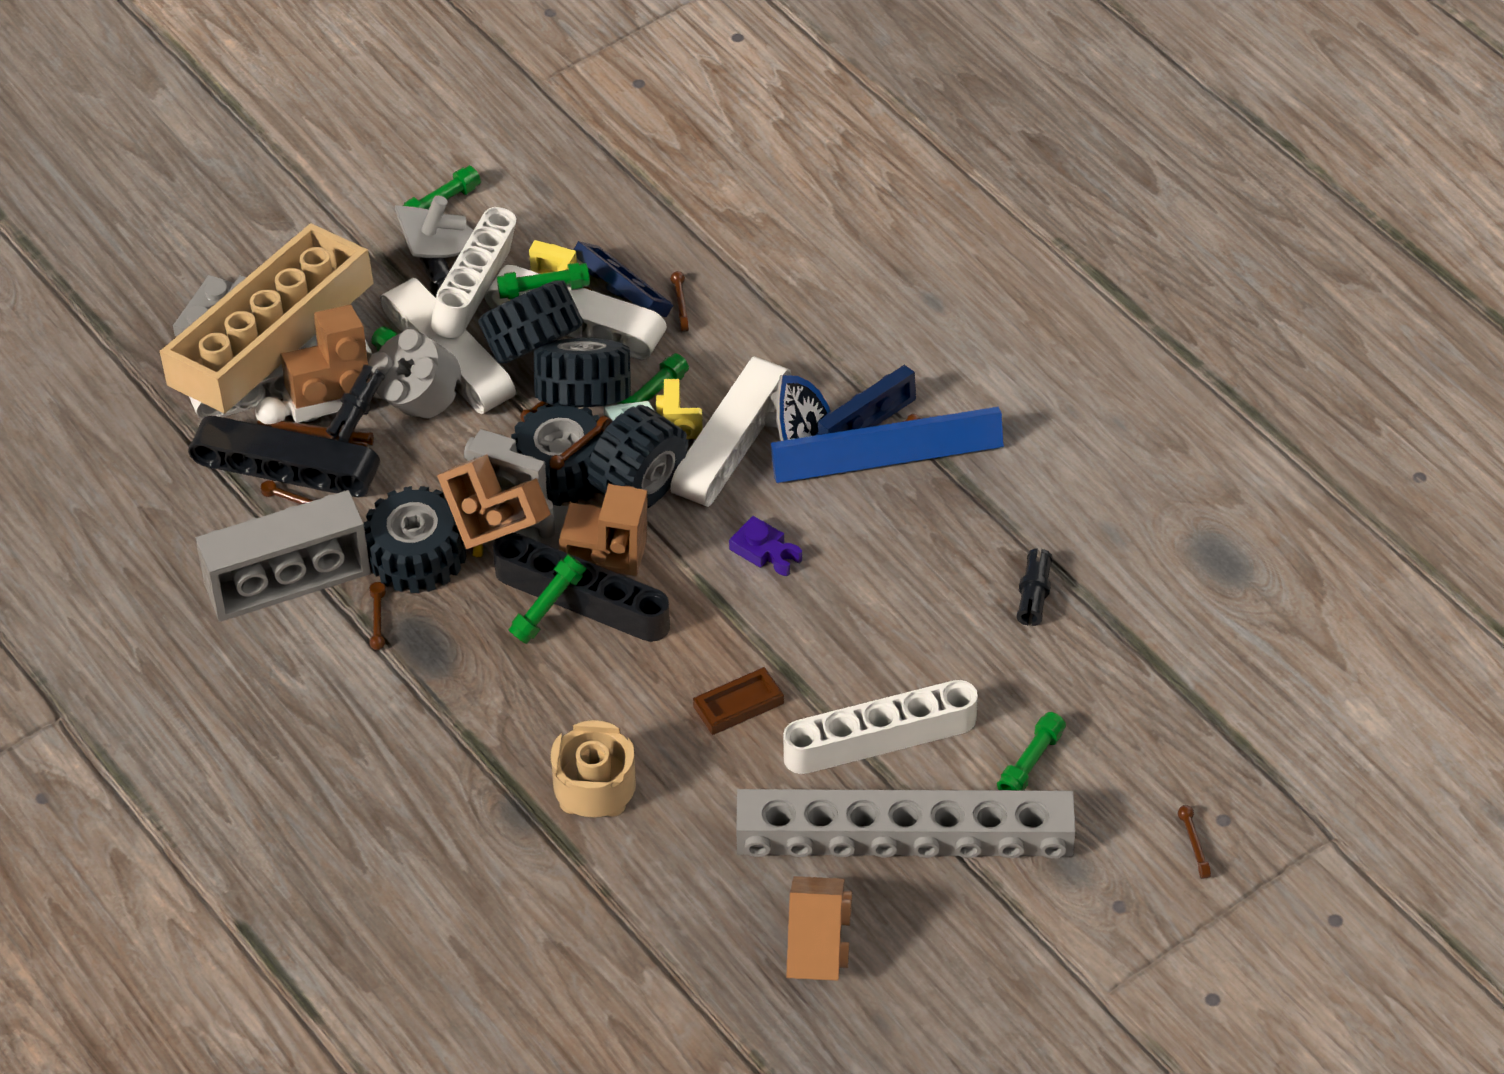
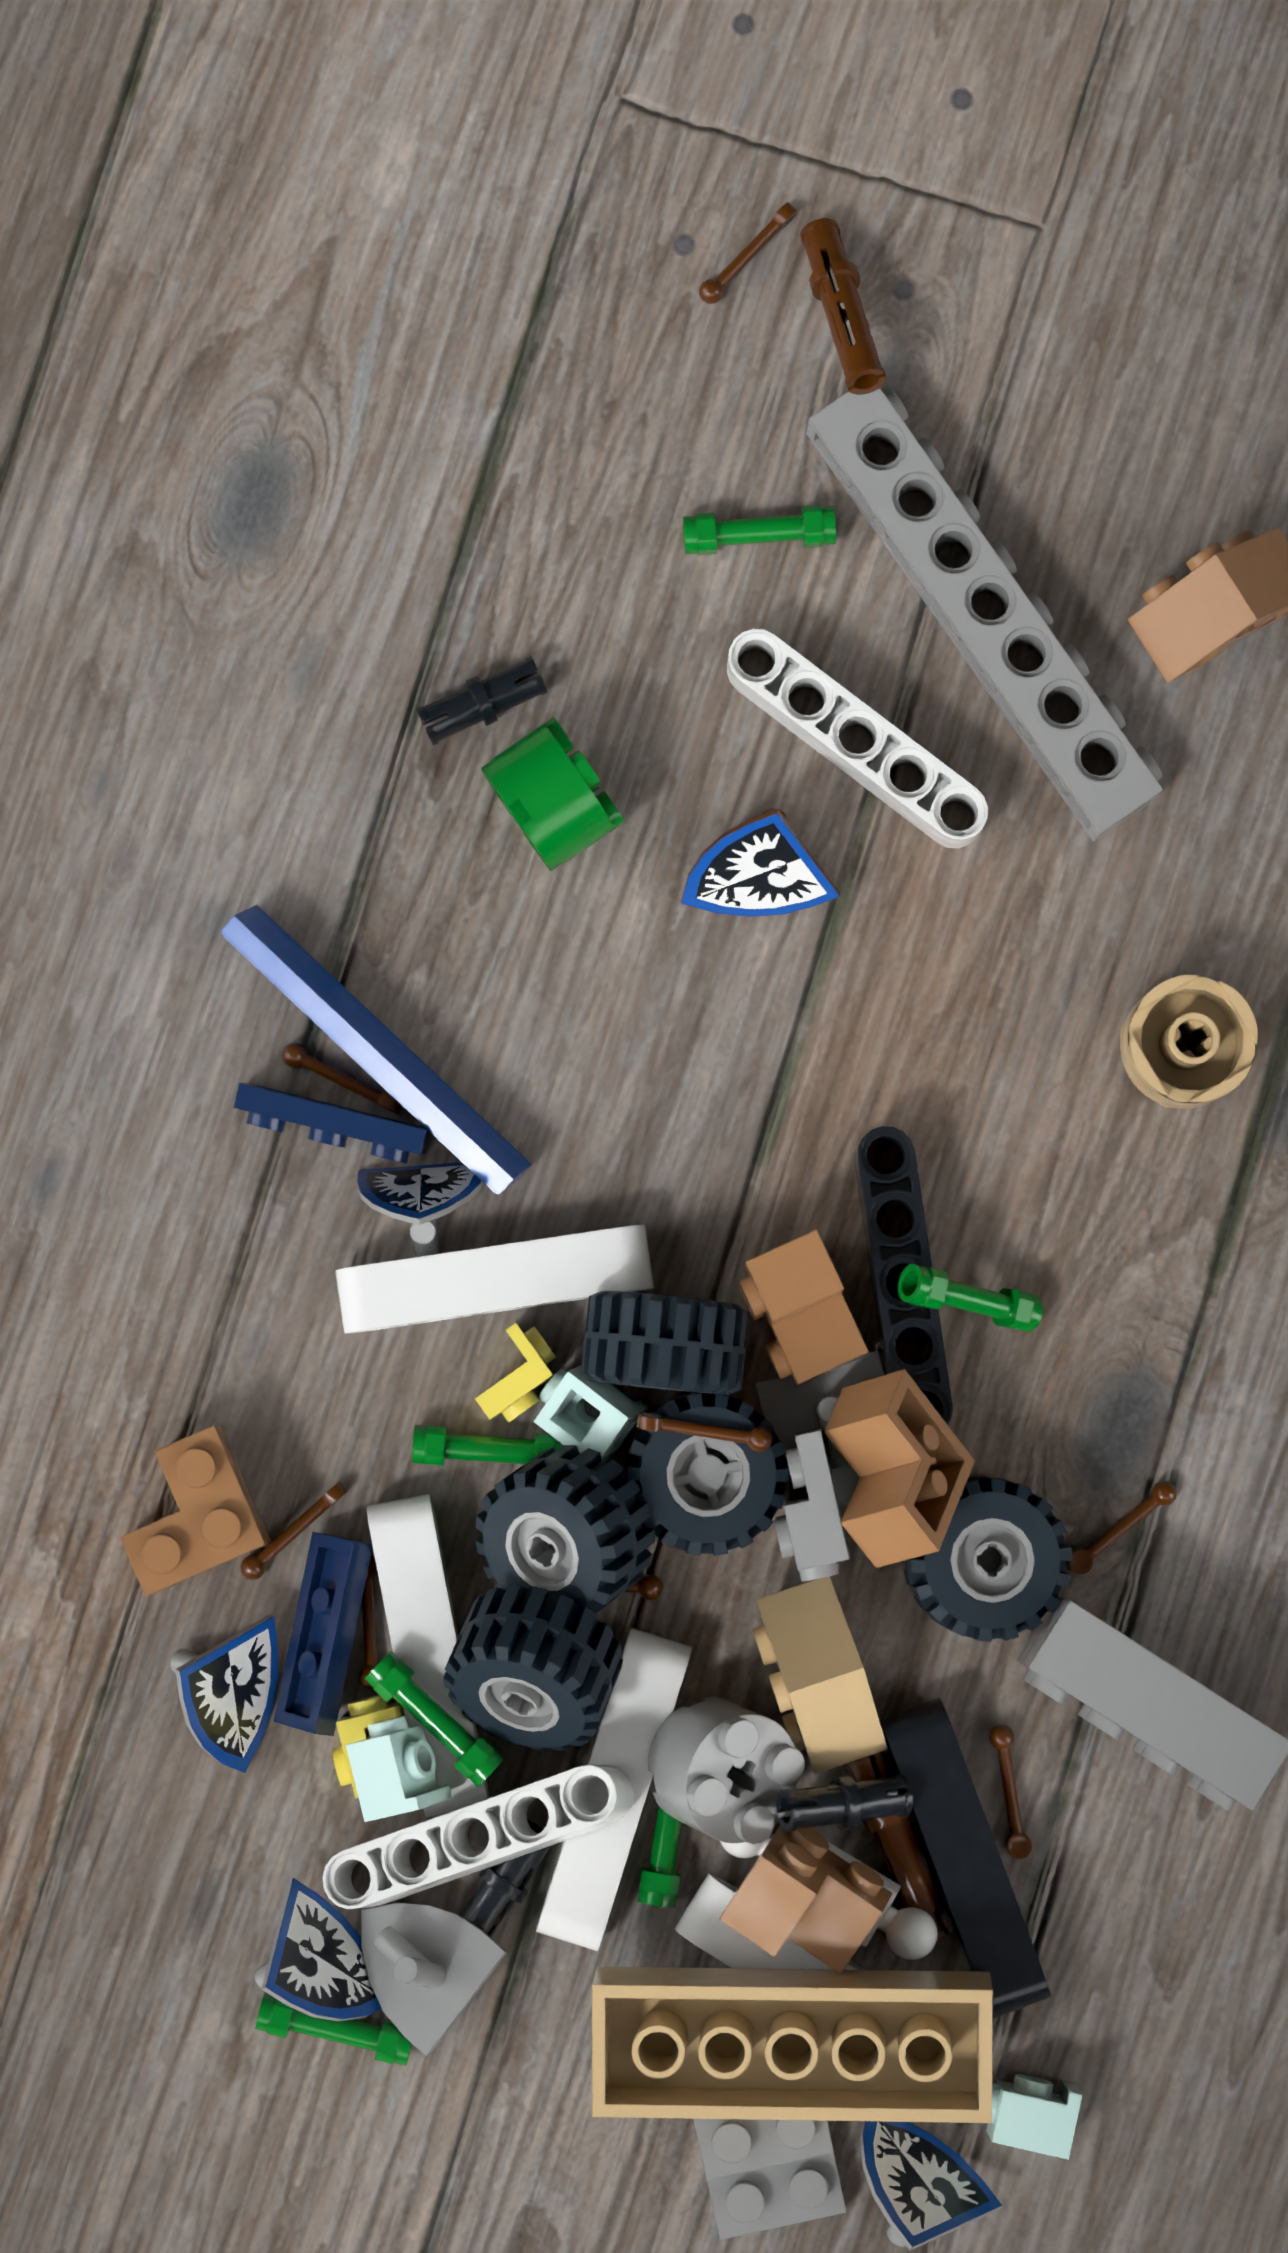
camera: 130 degrees left, 35 degrees up
(142, 413) = (1033, 2116): none -> light aqua brick
(145, 338) = (920, 2183): none -> shield
(421, 433) = (818, 1675): none -> tan brick
(474, 188) = (317, 1960): none -> shield
(527, 240) = (394, 1770): none -> light aqua brick
(626, 227) = (230, 1692): none -> shield
(719, 267) = (213, 1520): none -> medium nougat brick
(738, 701) = (928, 957): reddish brown tile -> none
(763, 543) = (653, 1111): dark purple plate -> none
(851, 643) = (758, 871): none -> shield
(957, 569) = (552, 794): none -> green brick
(1141, 855) = (825, 252): none -> reddish brown pin

